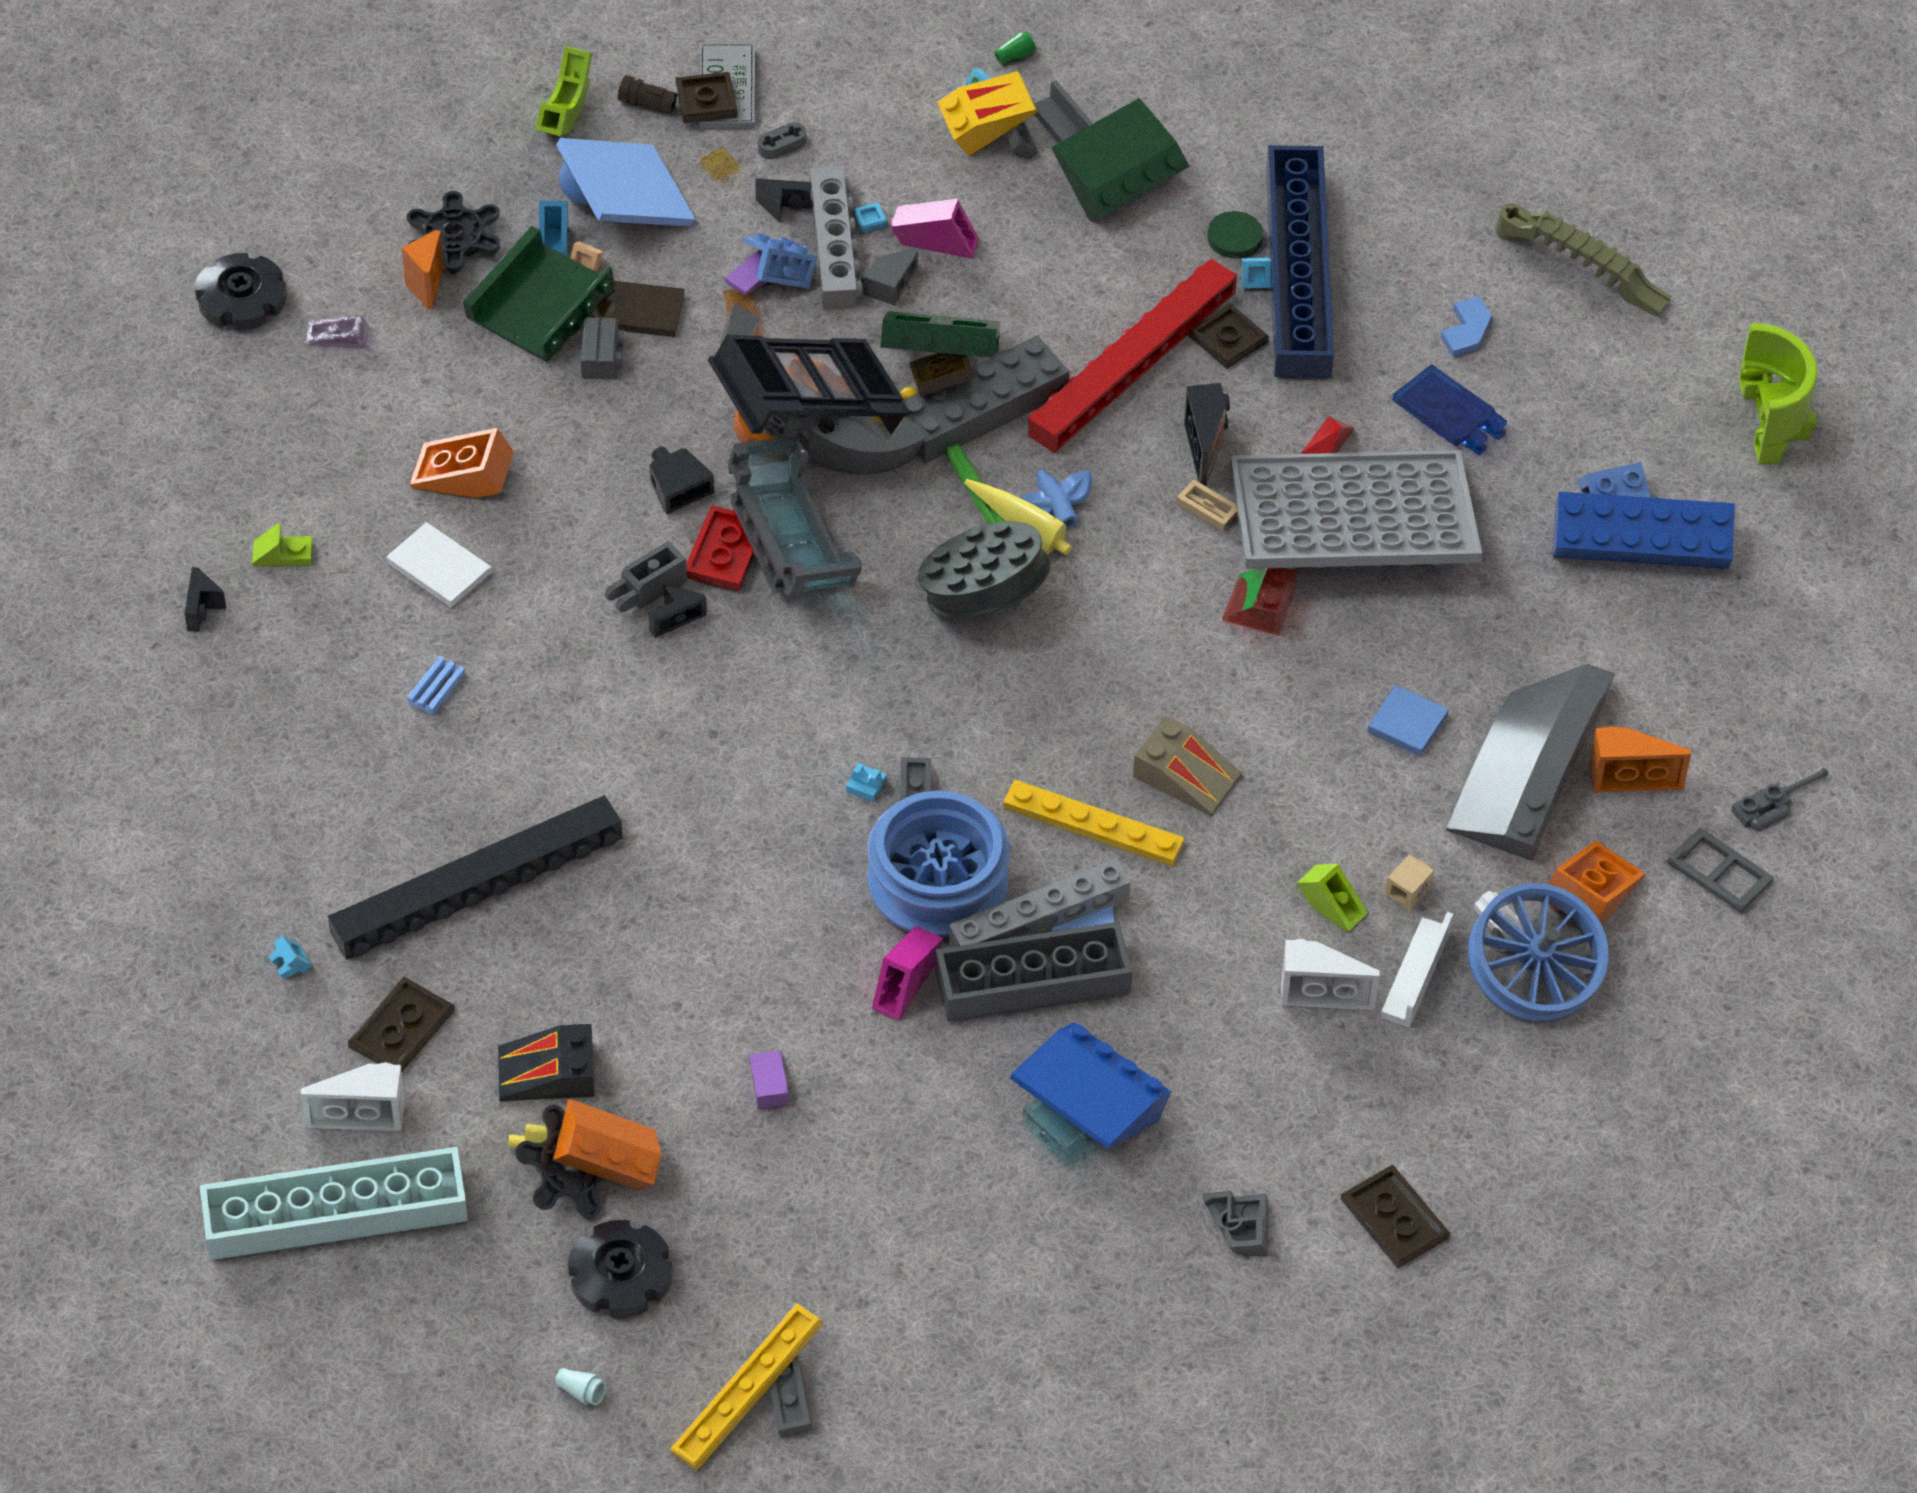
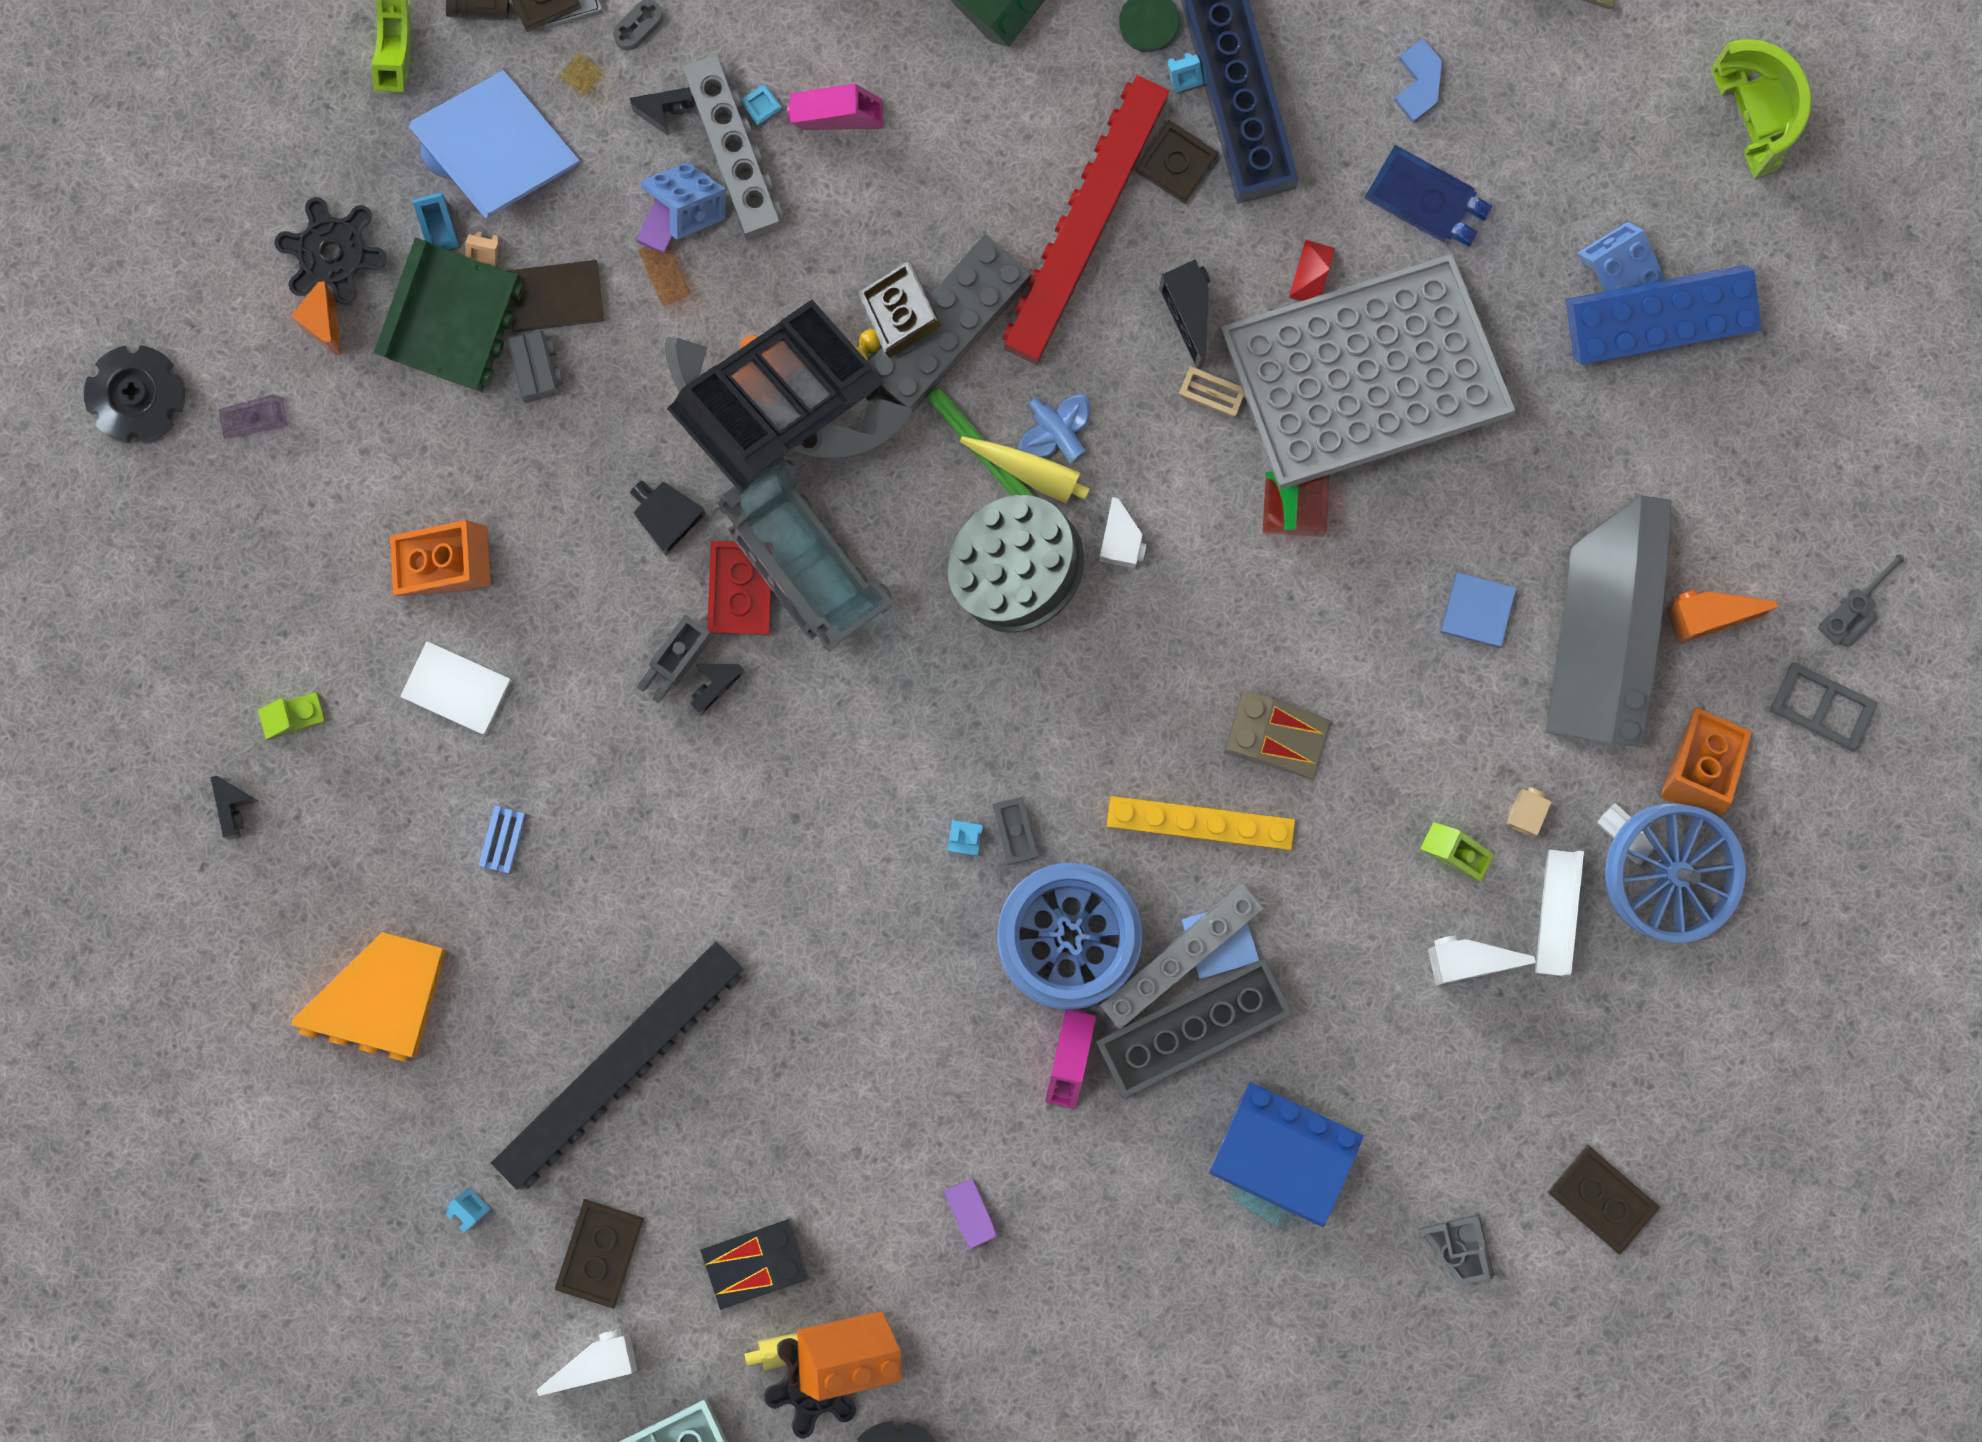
camera: 15 degrees left, 30 degrees up
(274, 772) = (378, 998): none -> light orange slope
(890, 275) = (805, 184): dark grey slope -> none
(940, 334) = (883, 247): dark green window -> none
(1088, 588) = (1121, 538): none -> white slope

